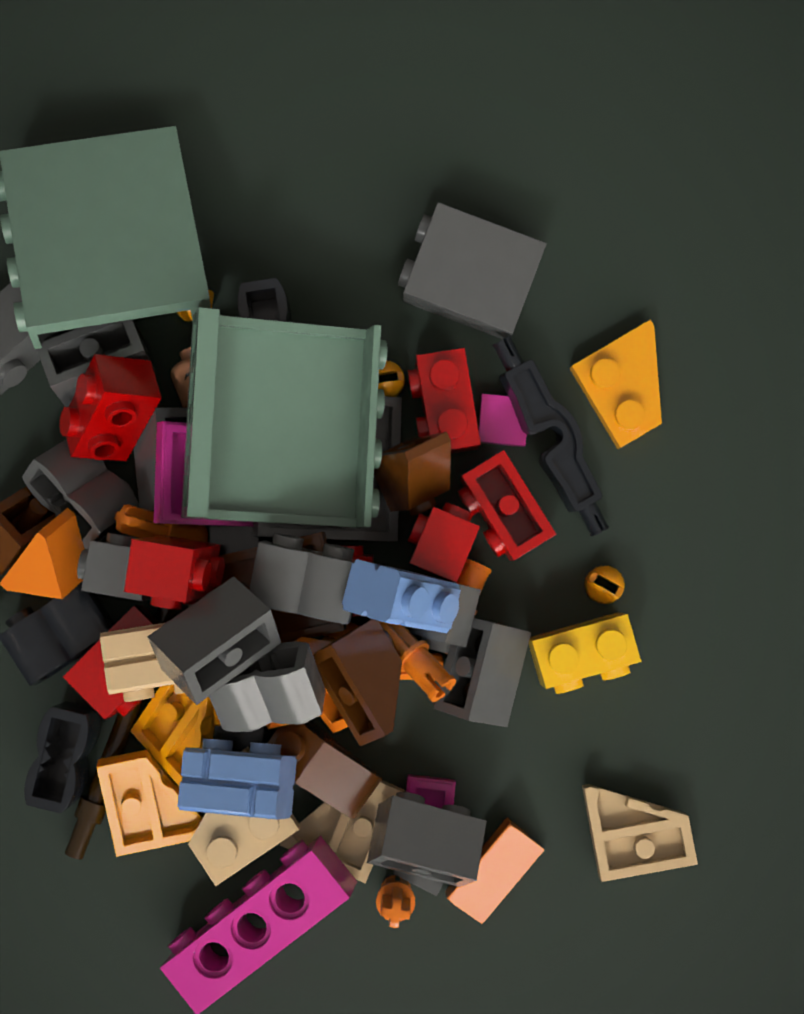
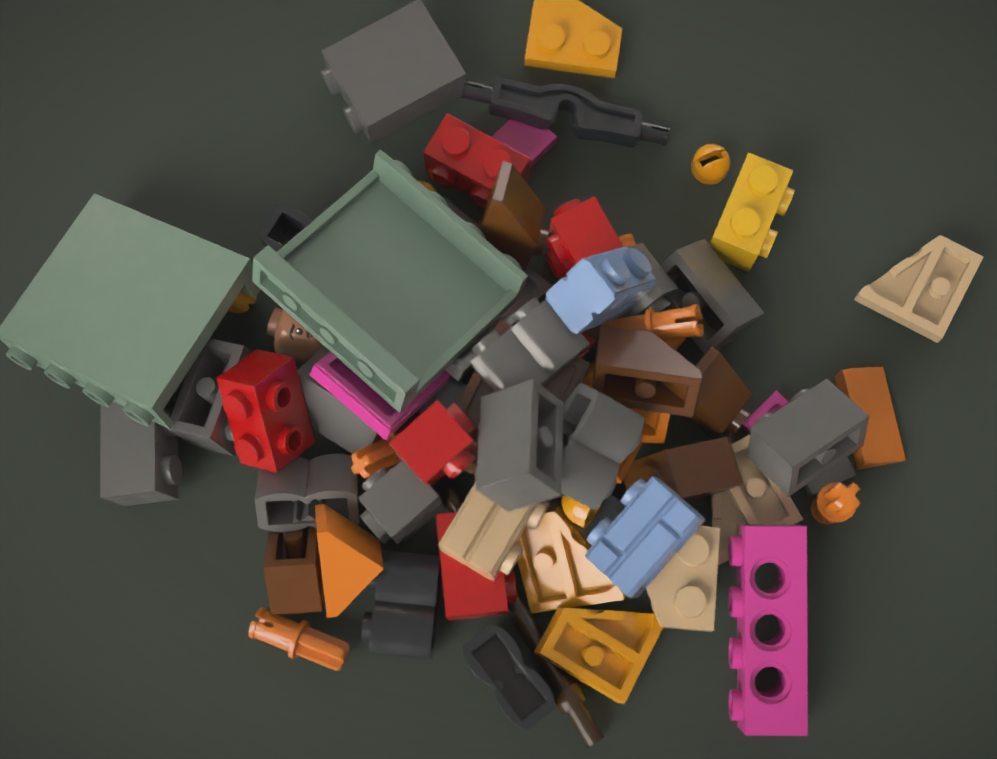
camera: 45 degrees left, 10 degrees down
(408, 745) = (719, 397): none -> reddish brown slope
(506, 506) = (590, 172): red brick -> none

